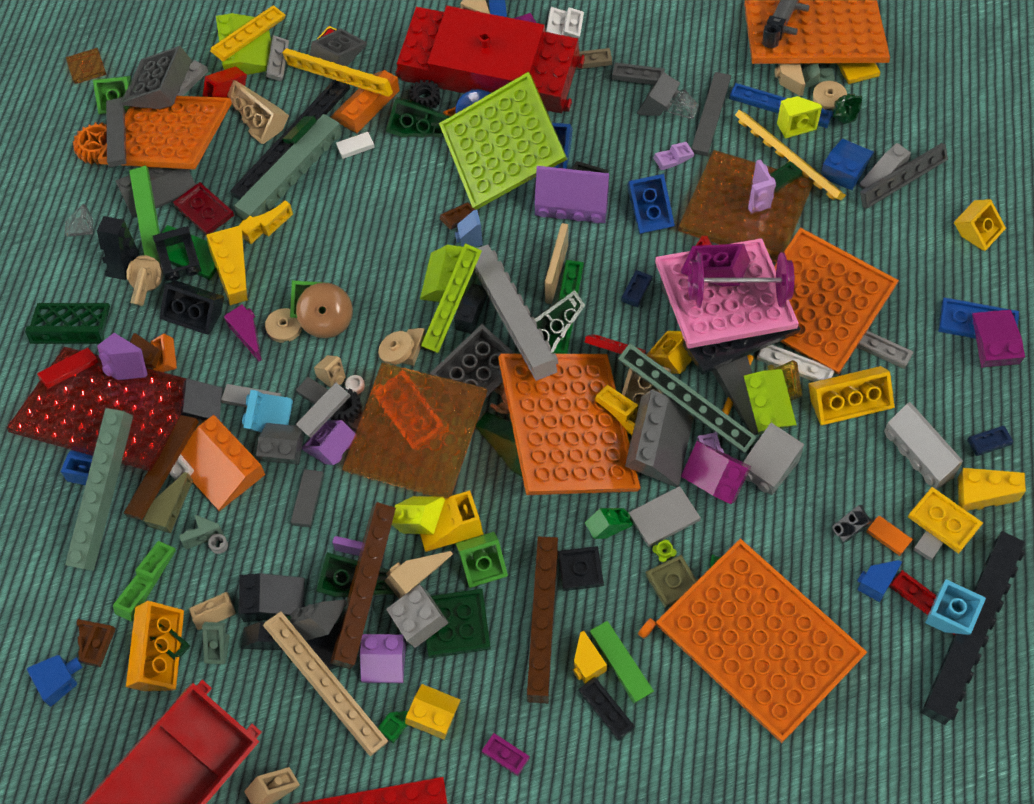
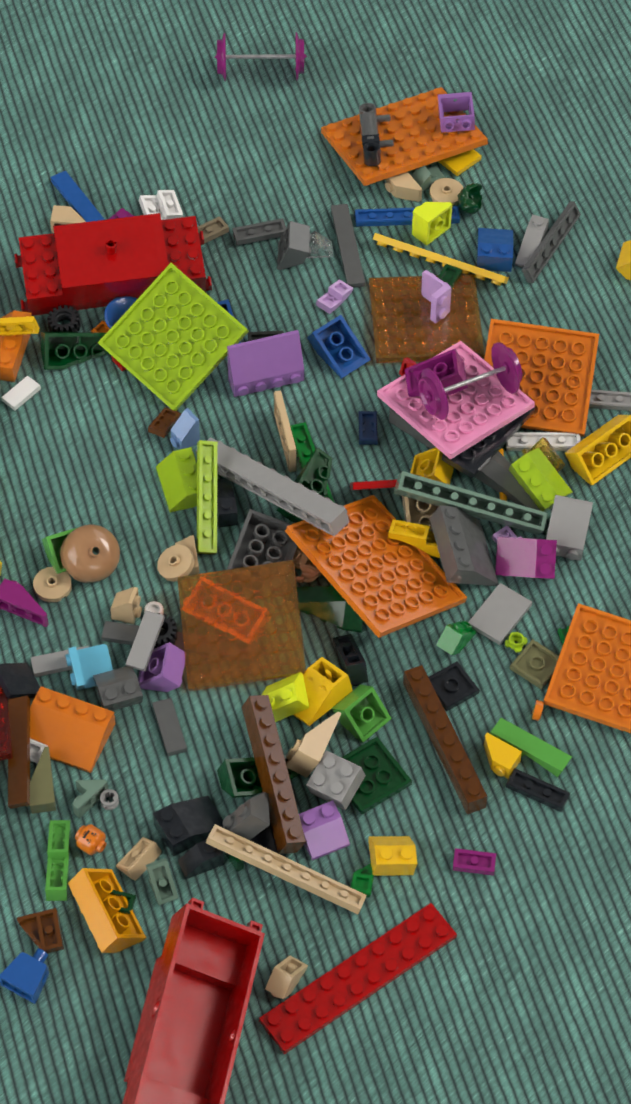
camera: 30 degrees left, 5 degrees down
(178, 574) = (90, 839): none -> orange head
(347, 545) = (236, 750): medium lavender tile -> none
(499, 503) = (351, 659): none -> black slope
(867, 12) = (447, 104): none -> medium lavender window

